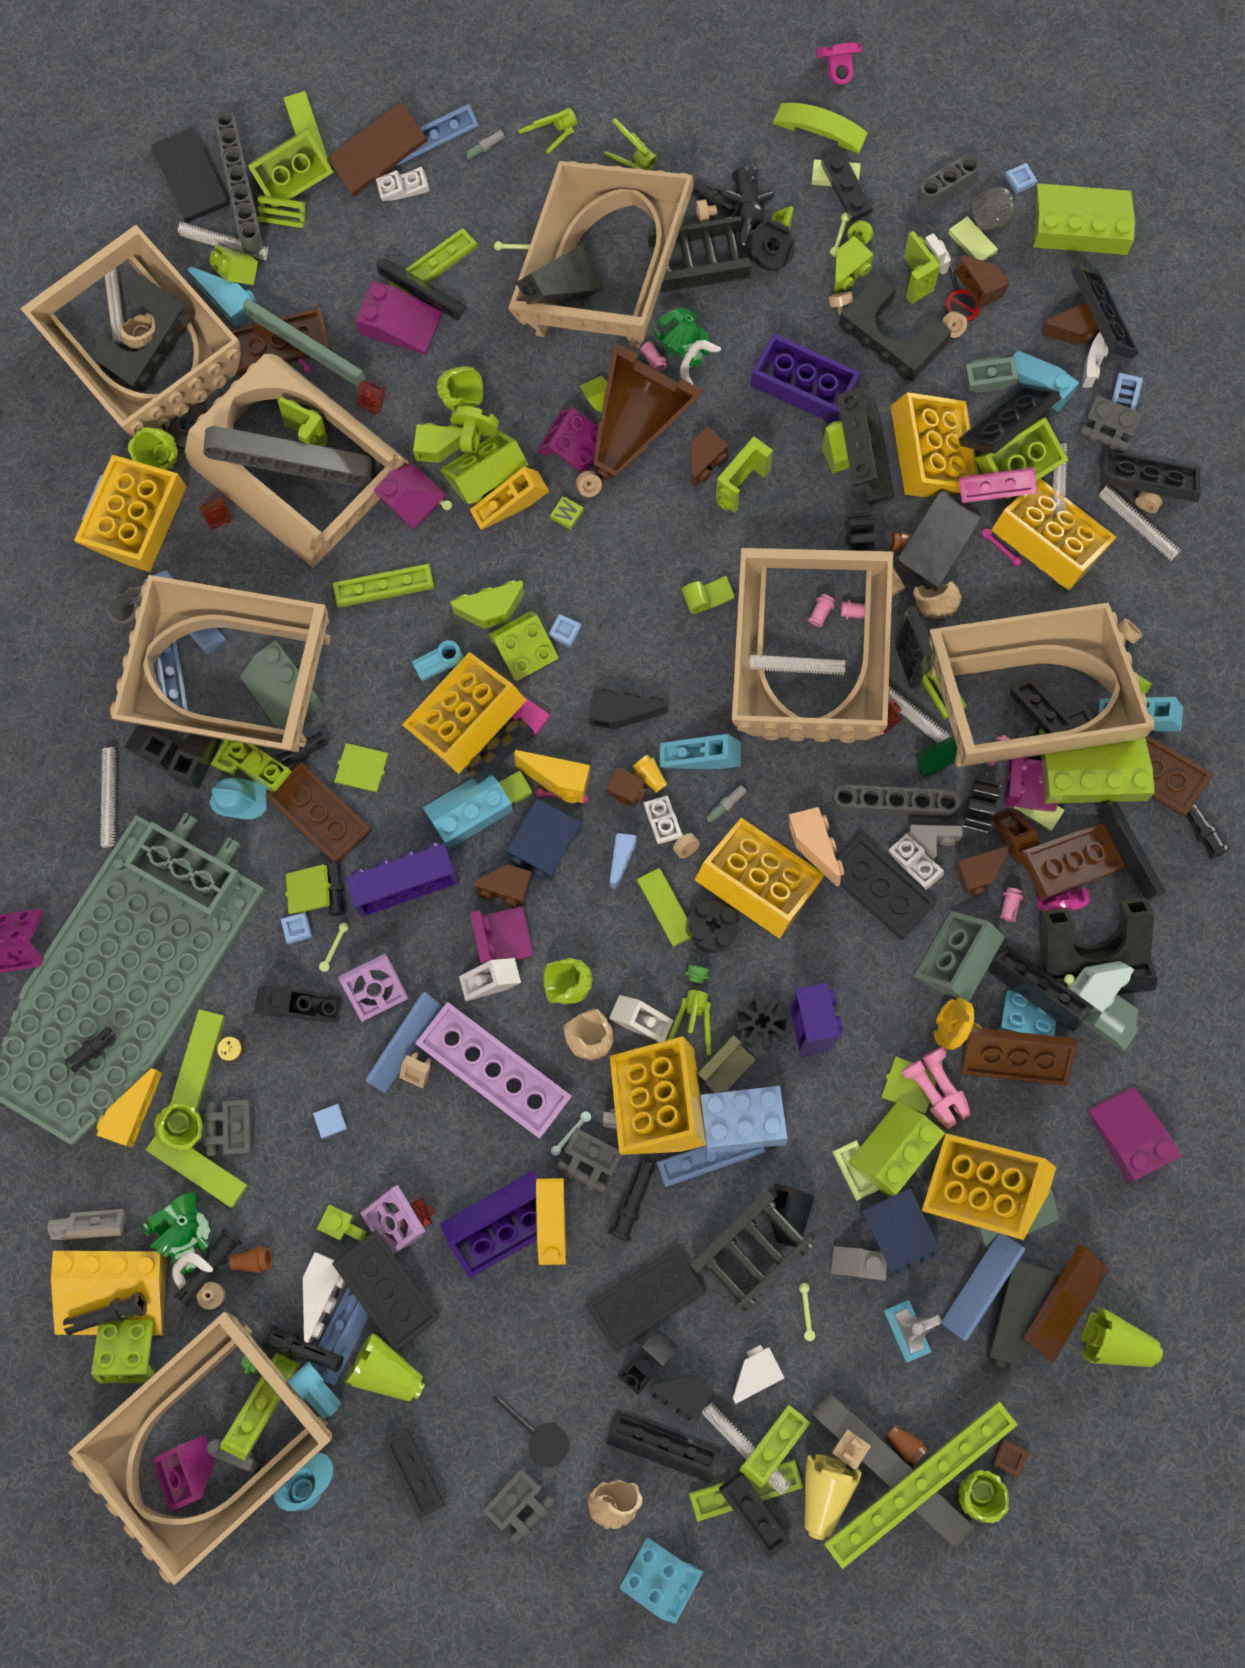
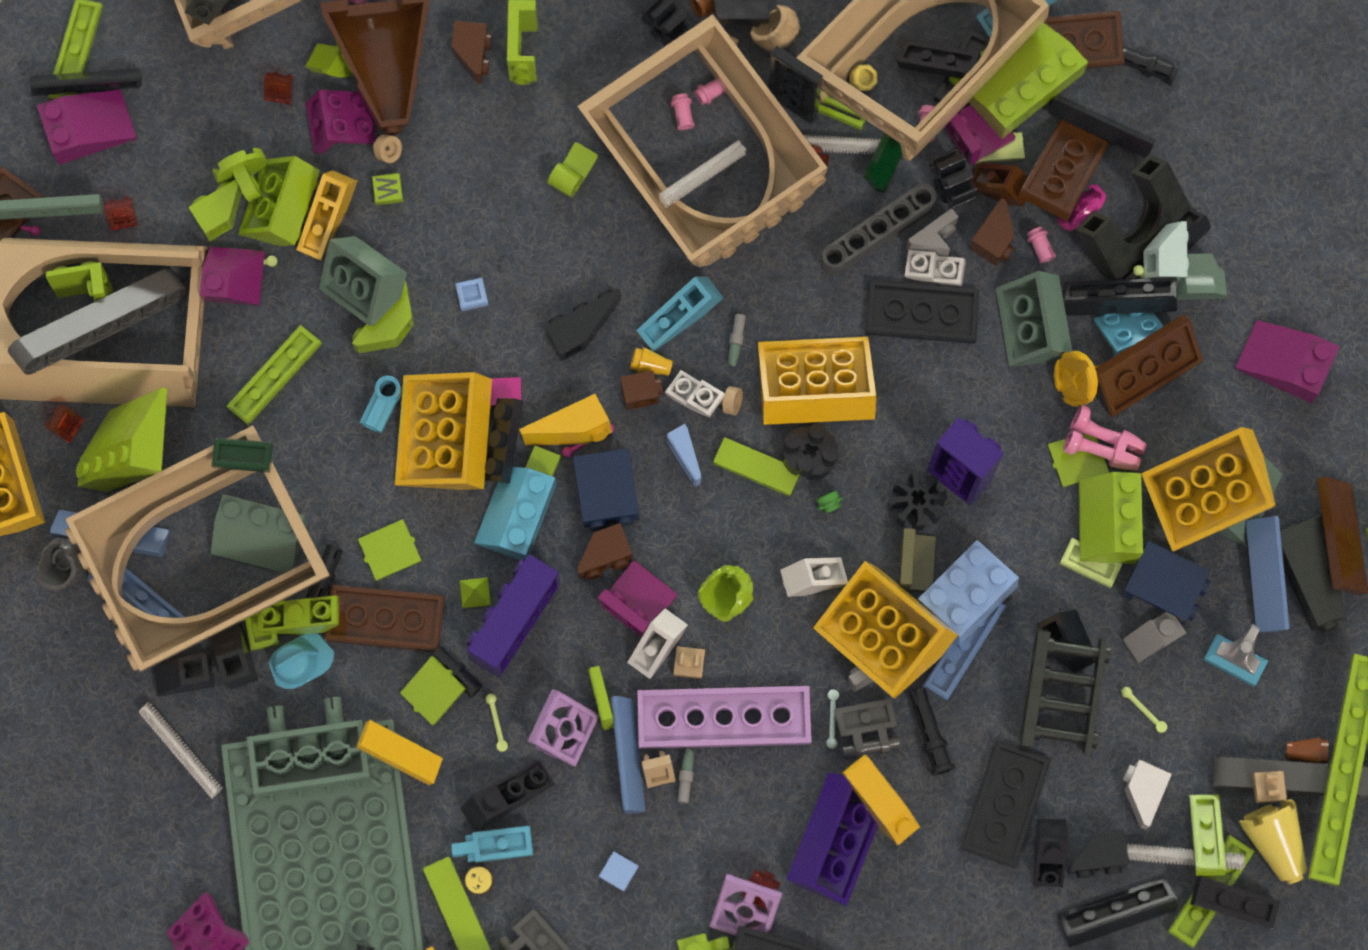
camera: 45 degrees left, 0 degrees up
(234, 557) = (126, 444): none -> lime slope
(246, 914) = (399, 752): none -> yellow tile
(261, 1033) = (495, 845): none -> medium azure hinge
(296, 928) = (449, 732): light blue tile -> none
(299, 620) = (242, 455): none -> dark green tile
(394, 843) = (475, 593): none -> lime slope
(417, 986) = (601, 698): none -> lime tile
(432, 1091) = (686, 777): none -> light grey piece
(460, 387) = (200, 146): lime hair -> none
(493, 561) = (361, 279): none -> sand green slope
(502, 1011) = (689, 662): none -> tan tile
(524, 645) = (446, 333): lime bracket -> none
(548, 387) = (278, 88): none -> clear red tile
(589, 1035) = (782, 622): tan hair -> none
(695, 1004) = (851, 528): lime plant -> none
(812, 840) = (837, 315): light nougat slope -> none
(975, 682) = (863, 77): none -> light yellow tile

